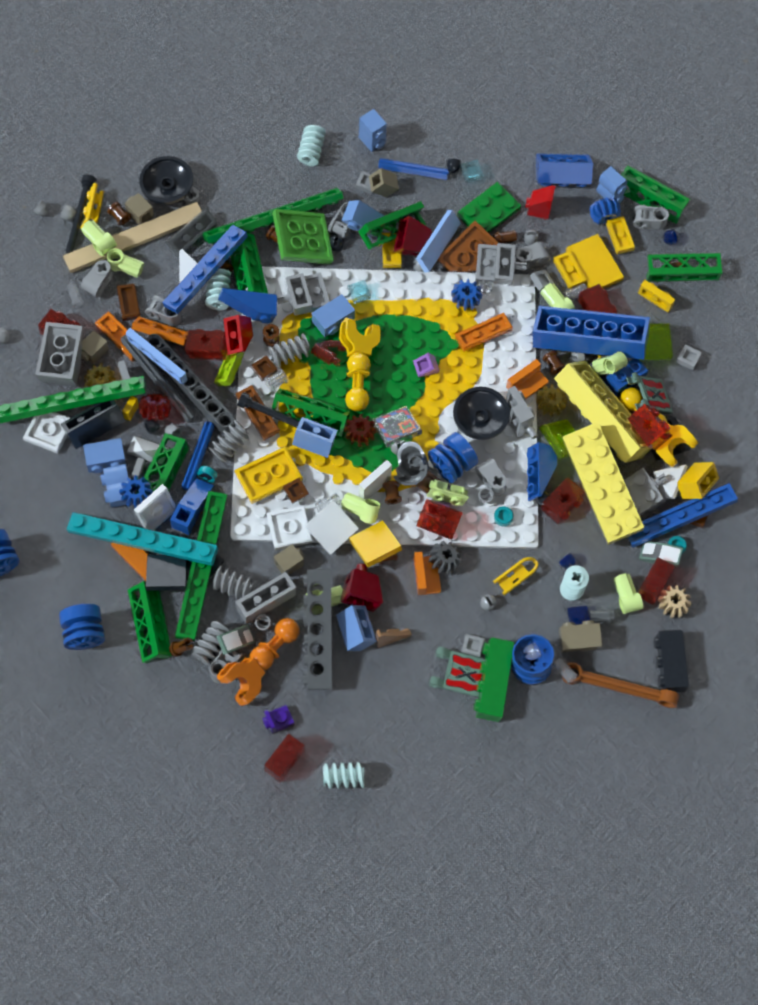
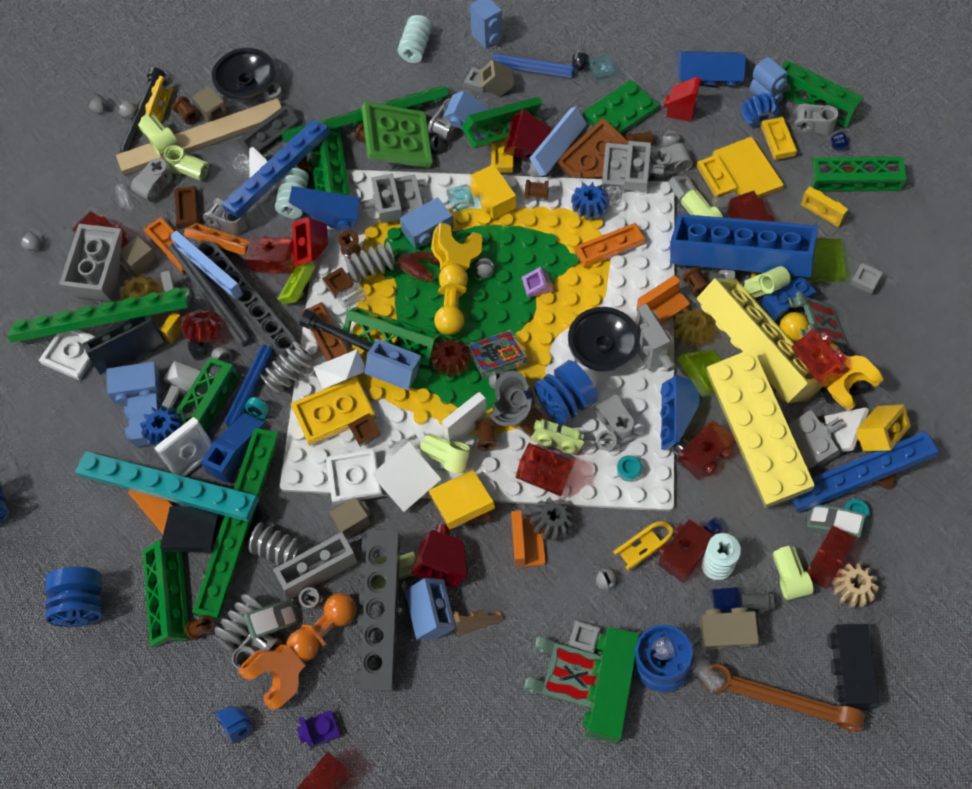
camera: 10 degrees right, 5 degrees down
(172, 260) = (241, 163): none -> clear hinge
(214, 716) = (234, 722): none -> blue piece
(271, 441) = (339, 369): none -> white slope
(384, 355) = (484, 268): none -> light grey hinge
(386, 287) = (492, 191): none -> yellow brick
(422, 285) = (536, 190): none -> reddish brown bush
(544, 588) = (681, 563): none -> clear red brick

